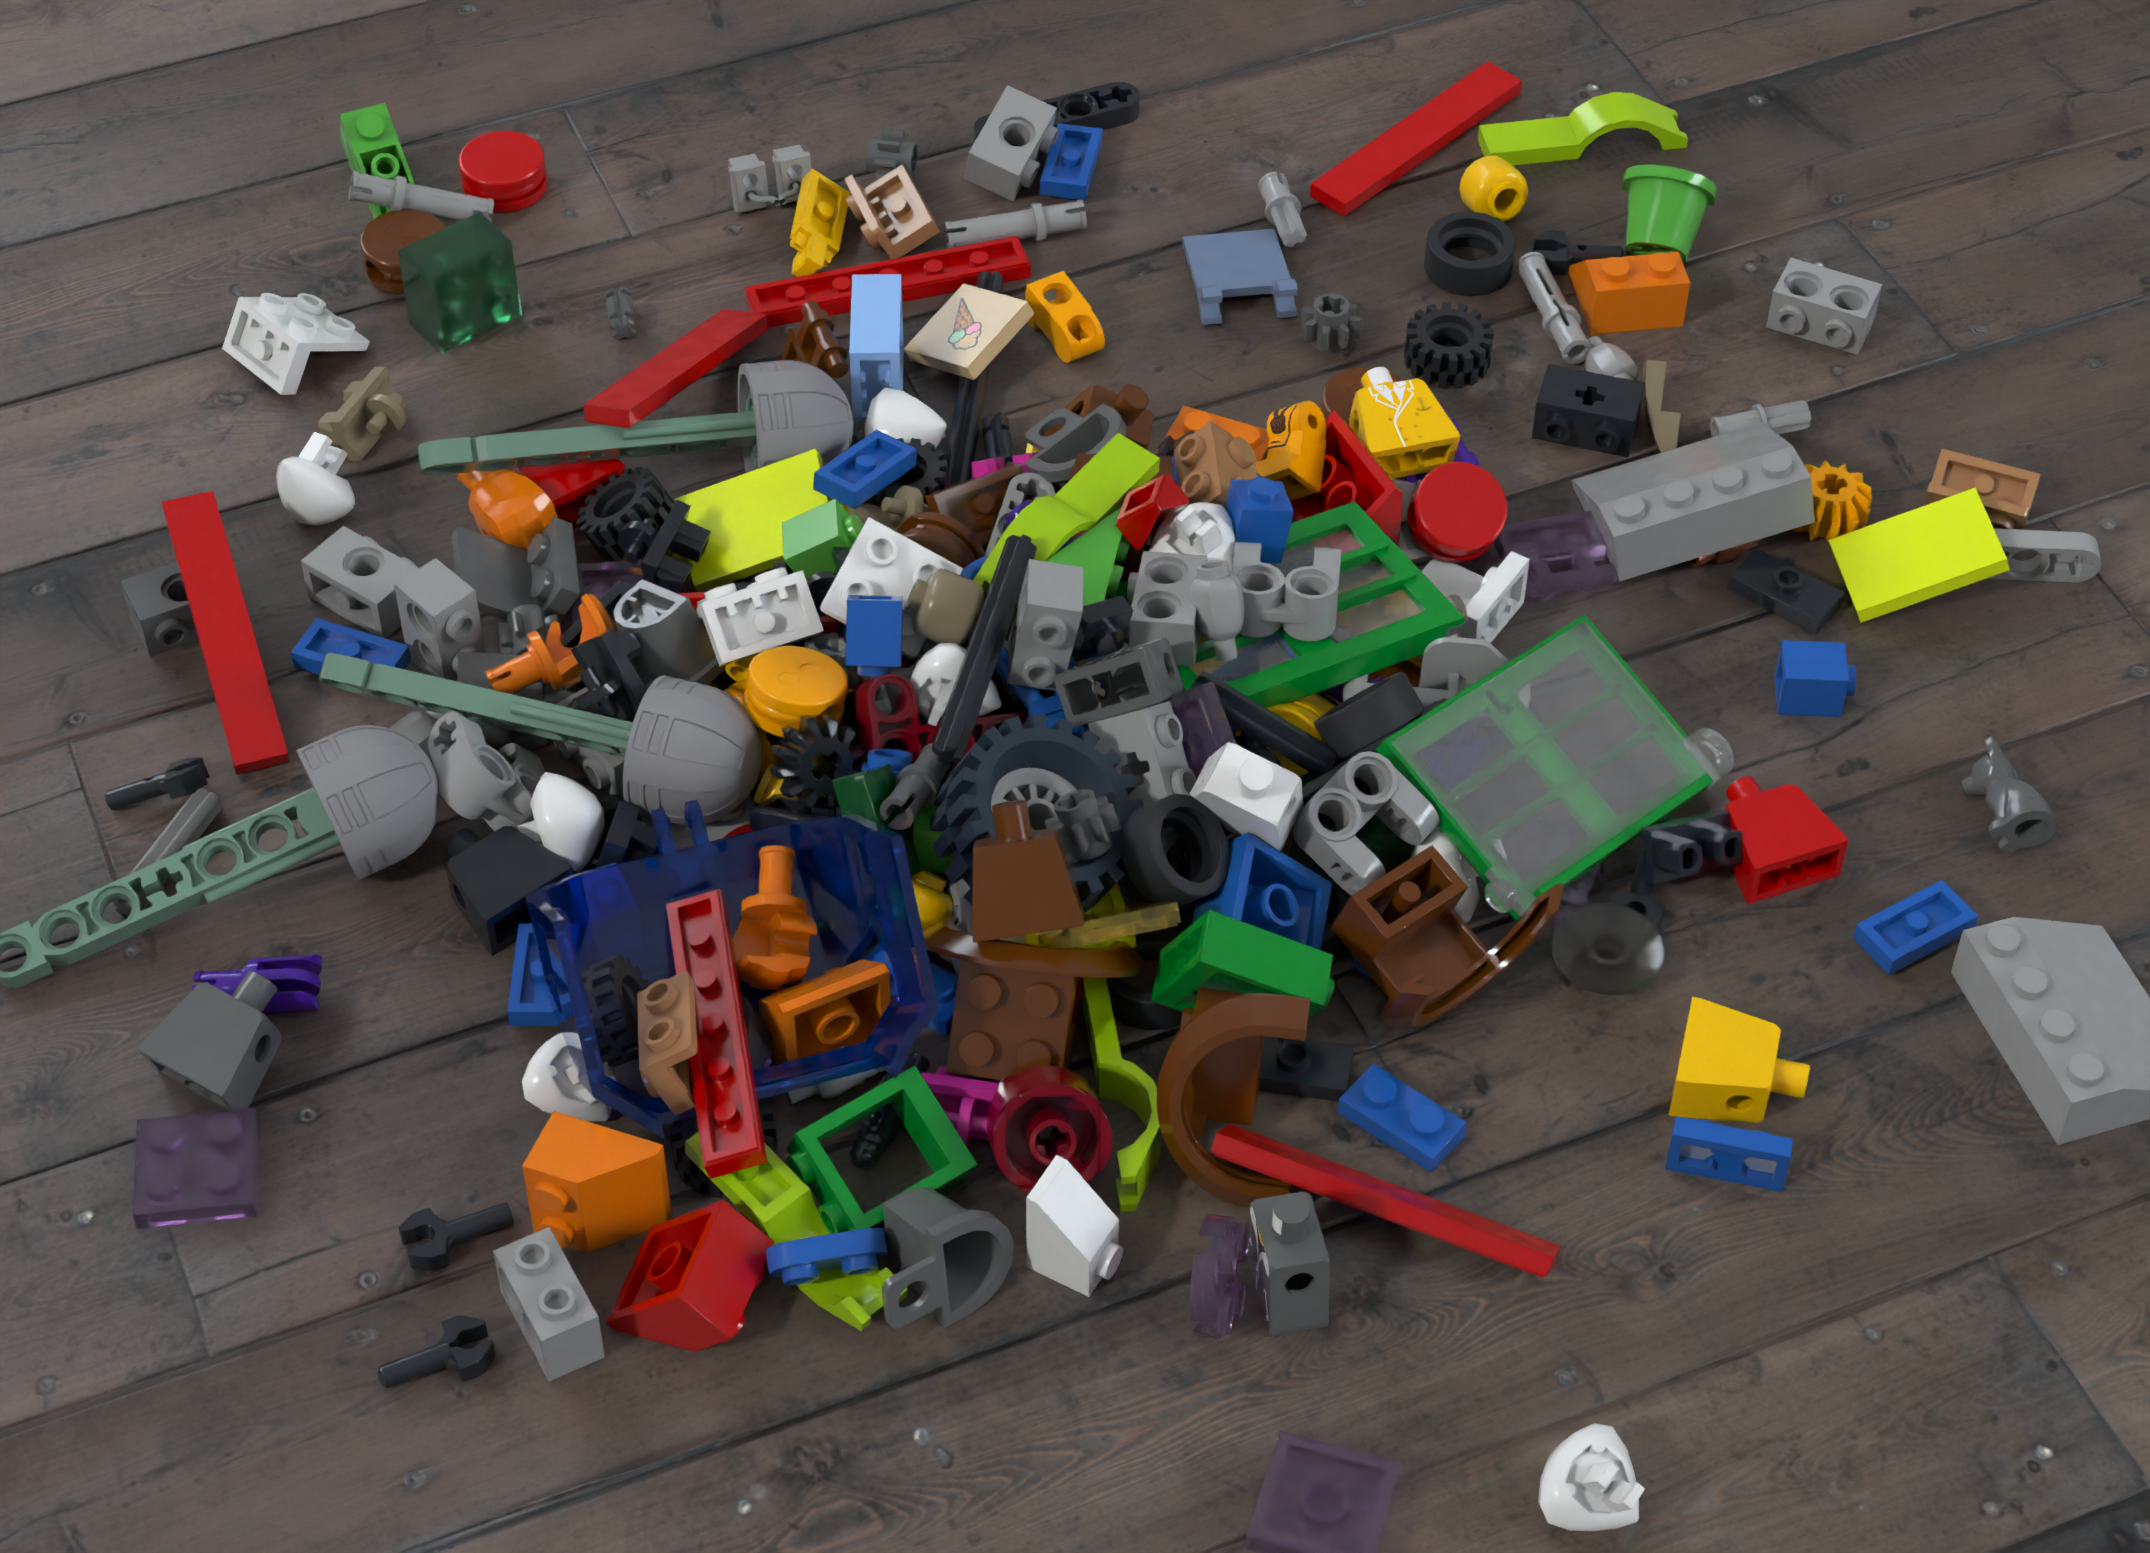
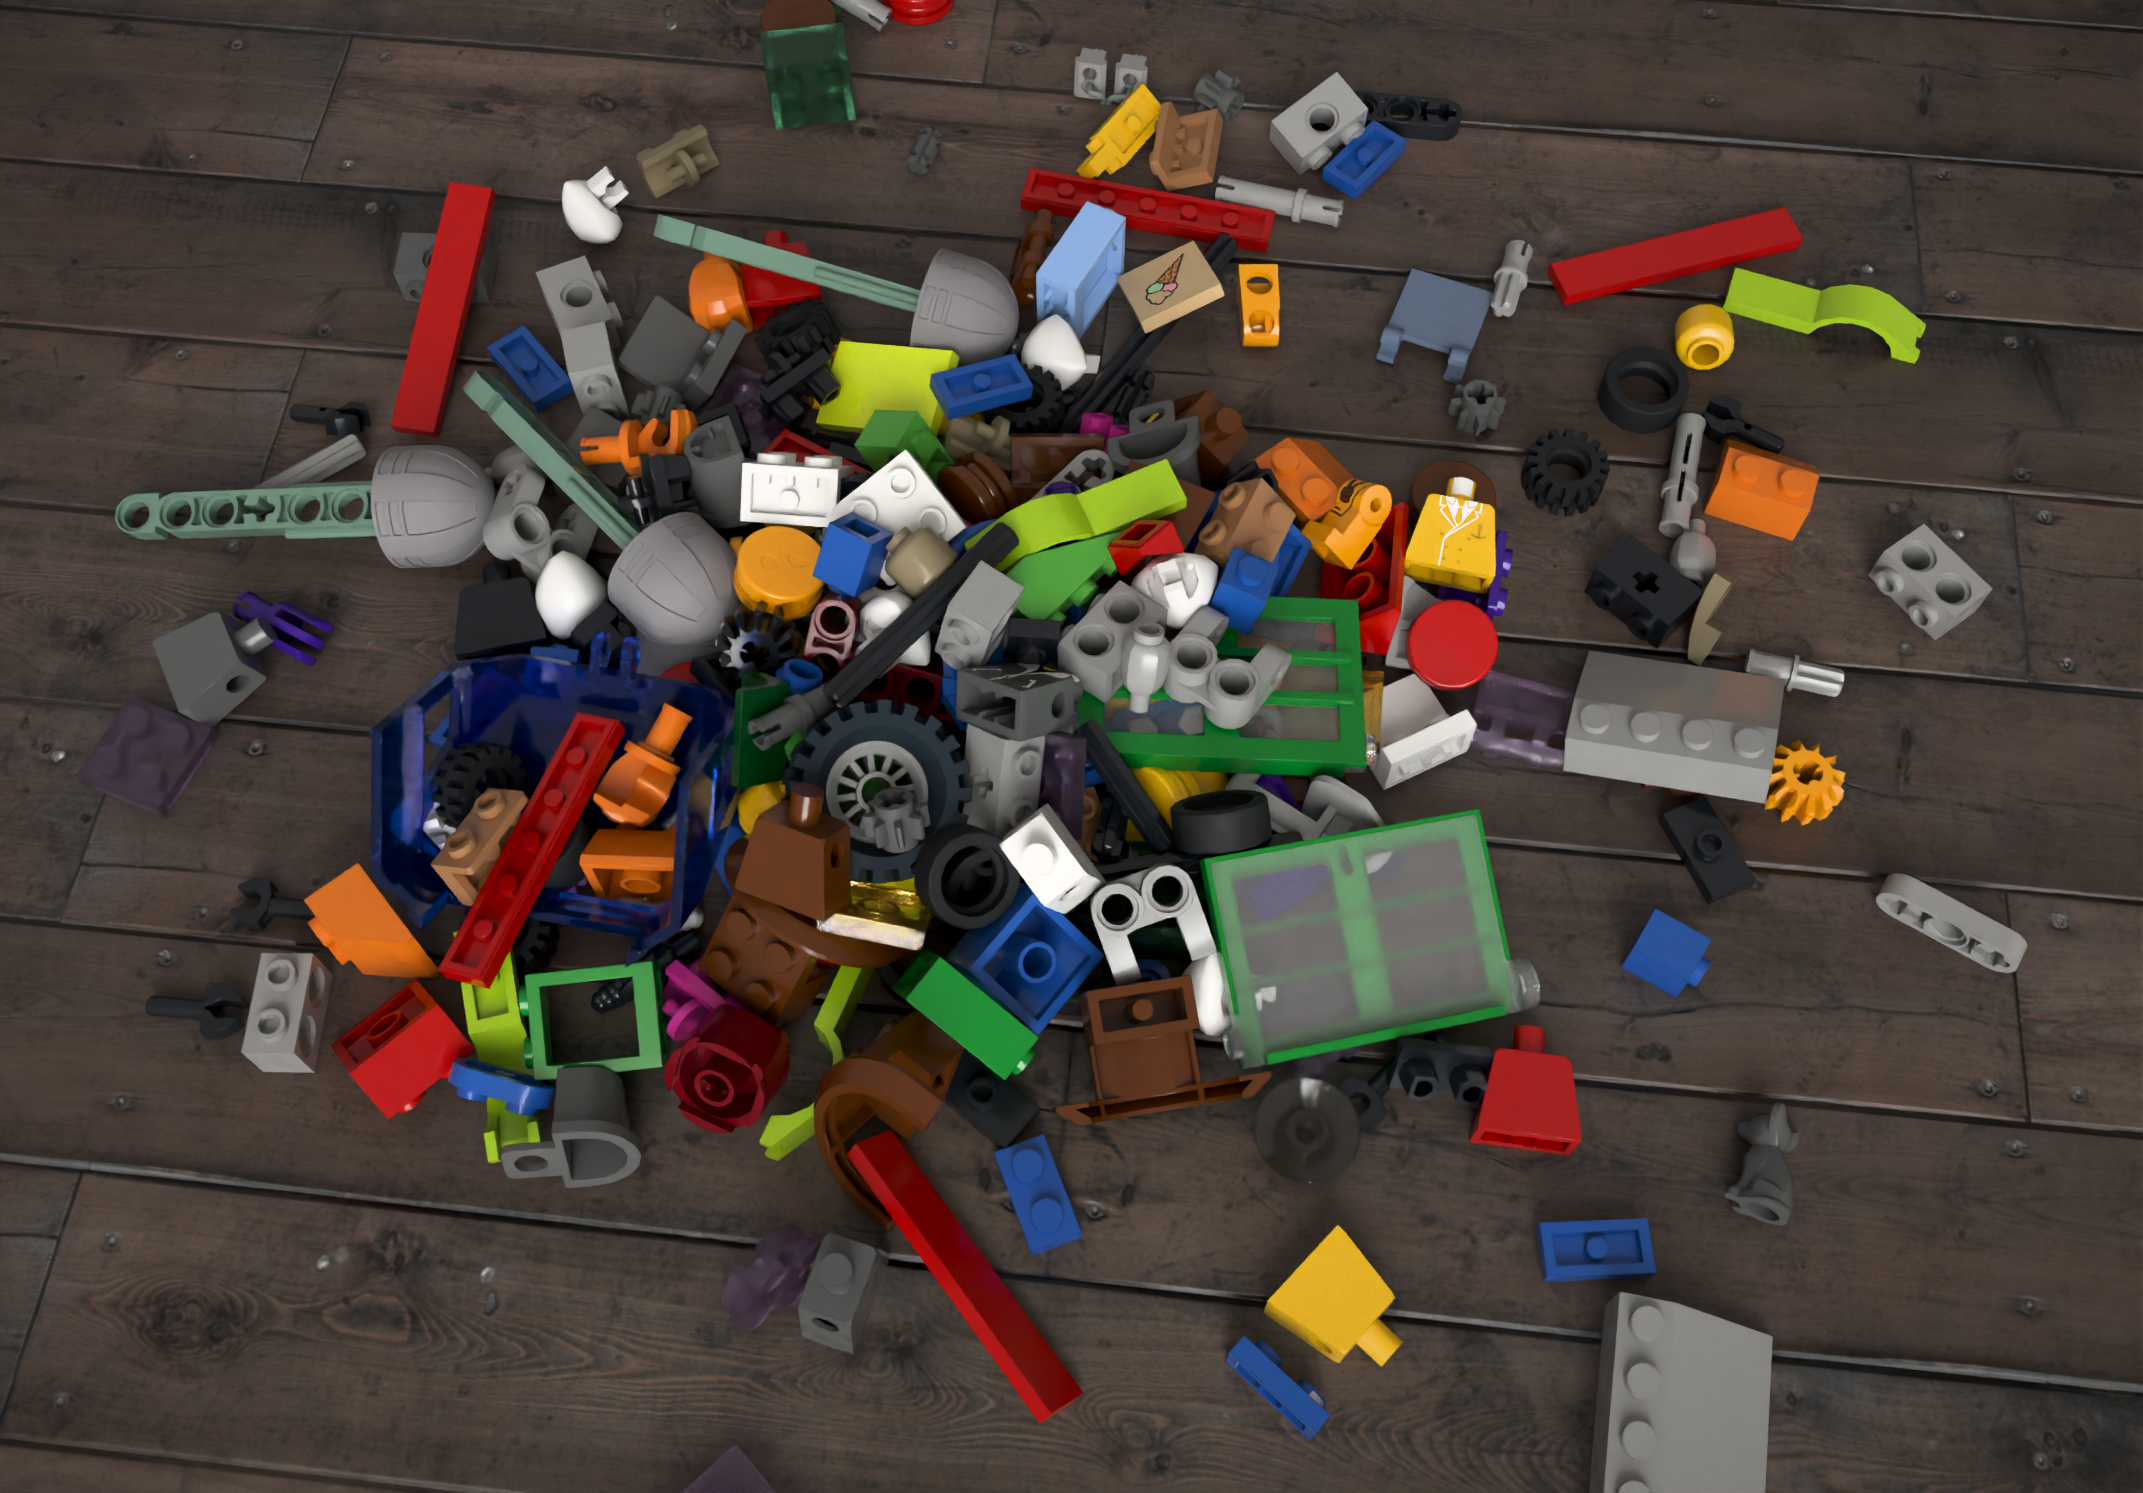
camera: 30 degrees right, 15 degrees up
(277, 333) = (670, 61): white bracket -> none
(674, 368) = (909, 224): red tile -> none
(1070, 1230) = (692, 1167): white slope -> none
(1664, 208) = (1838, 427): bright green container -> none
(1918, 555) = (1846, 879): neon yellow tile -> none
(2003, 489) = (1952, 839): medium nougat bracket -> none

